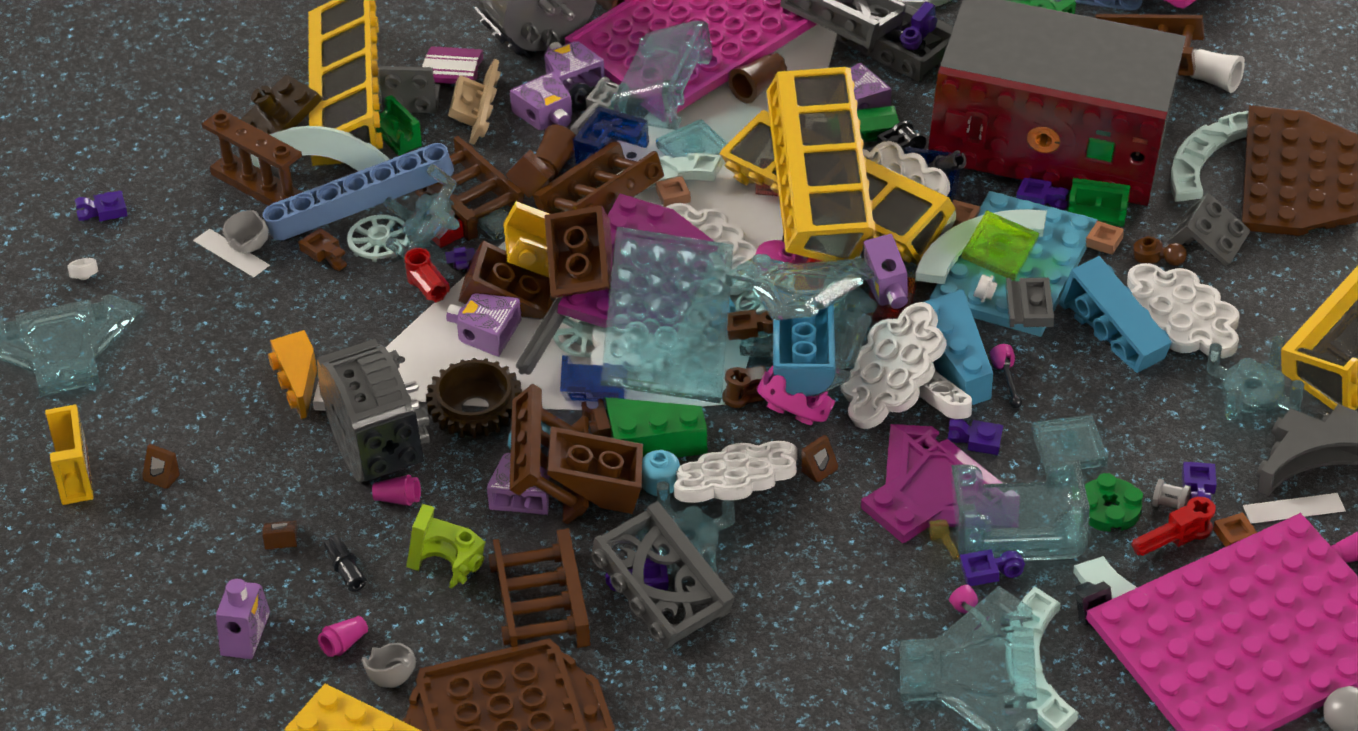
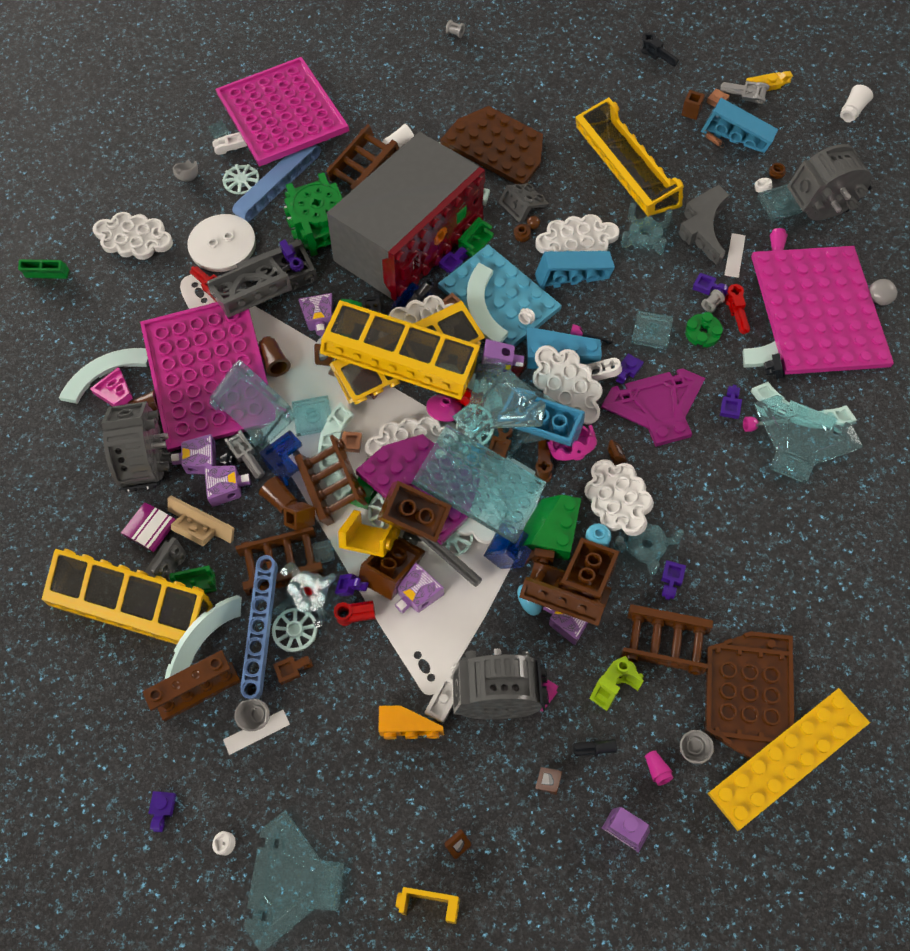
camera: 65 degrees left, 20 degrees up
(281, 106) = (139, 656): dark brown plate -> none
(468, 381) = (488, 605): dark brown gear -> none
(662, 533) = (676, 549): dark grey fence -> none
(940, 530) = (694, 414): clear yellow hand -> none
(1000, 245) = (500, 294): clear neon green plate -> none
(1029, 517) = (706, 368): clear light blue windscreen -> none
(1030, 302) = (549, 300): dark grey plate -> none
(1104, 237) = (504, 246): nougat plate -> none
(1233, 529) = (750, 284): dark orange plate -> none

